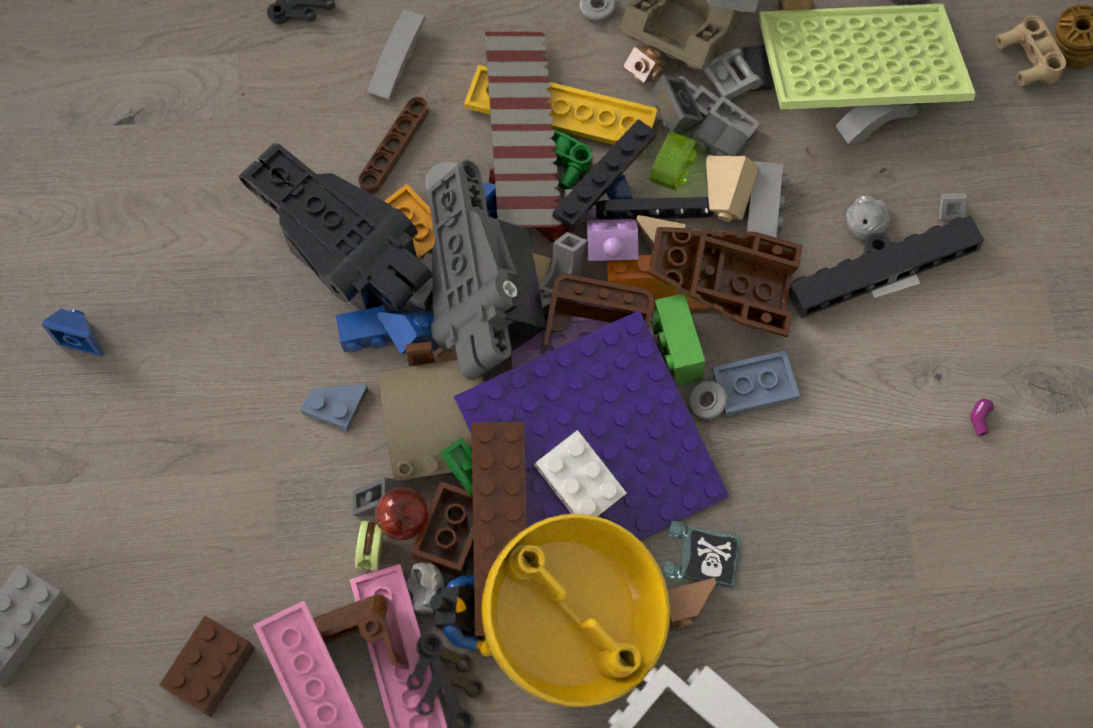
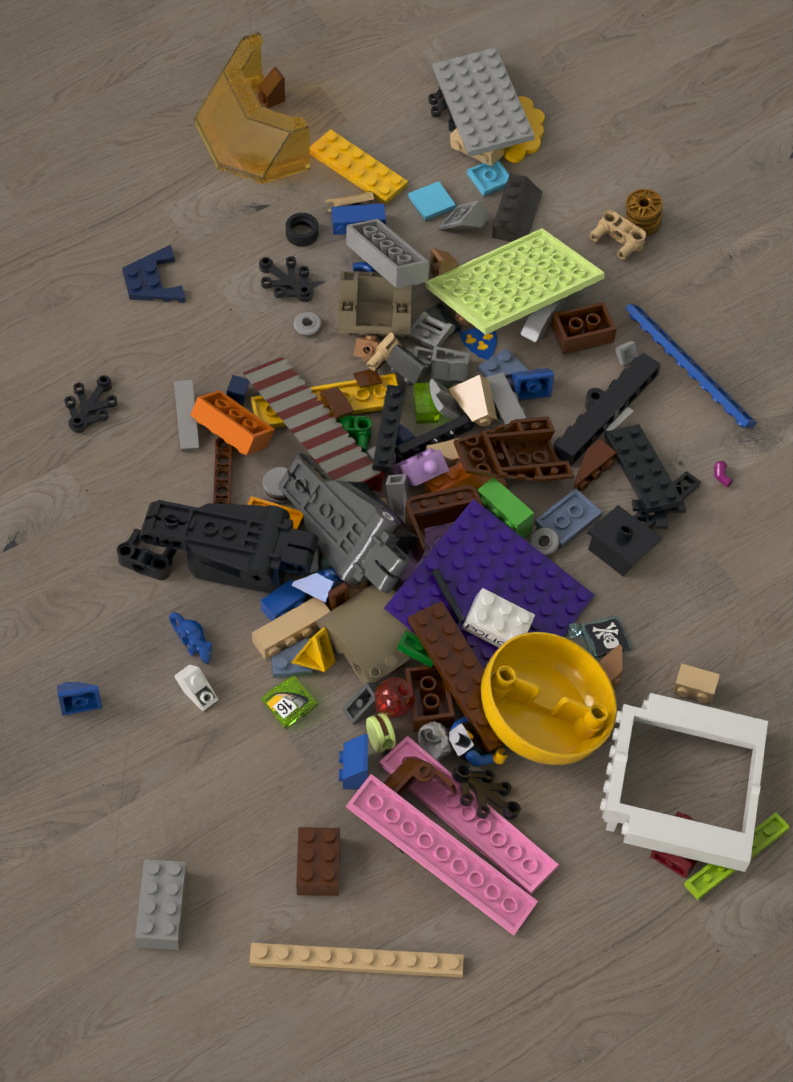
camera: 35 degrees left, 10 degrees down
(208, 384) = (196, 686): none -> white slope
(244, 319) = (191, 633): none -> blue animal
(247, 207) = (144, 560): none -> black piece
(298, 452) = (289, 701): none -> slope
(320, 569) = (354, 762): none -> blue slope
(350, 363) = (289, 628): none -> tan brick
(359, 410) = (317, 652): none -> yellow slope
(435, 86) = (232, 422): none -> orange brick
(467, 49) = (237, 389): none -> dark blue panel
(537, 418) = (448, 596): none -> black bar
(565, 115) = (337, 402): none -> reddish brown slope
(624, 100) = (368, 377): none -> reddish brown piece
(655, 72) = (383, 351): none -> tan arm
(691, 169) = (444, 400): none -> light grey slope
(782, 676) = (696, 683): none -> tan brick
(783, 121) = (479, 343): none -> blue sticker
(794, 154) = (501, 362): none -> sand blue wing
(799, 461) = (623, 539): none -> black piece
(811, 194) = (532, 383): none -> blue slope
(830, 327) = (596, 460): none -> reddish brown slope
(869, 209) = (573, 377): light grey hair -> none
(882, 366) = (643, 469): none -> black plate
(917, 151) = (583, 327): none -> reddish brown brick
(1024, 259) = (694, 370): none -> blue plate

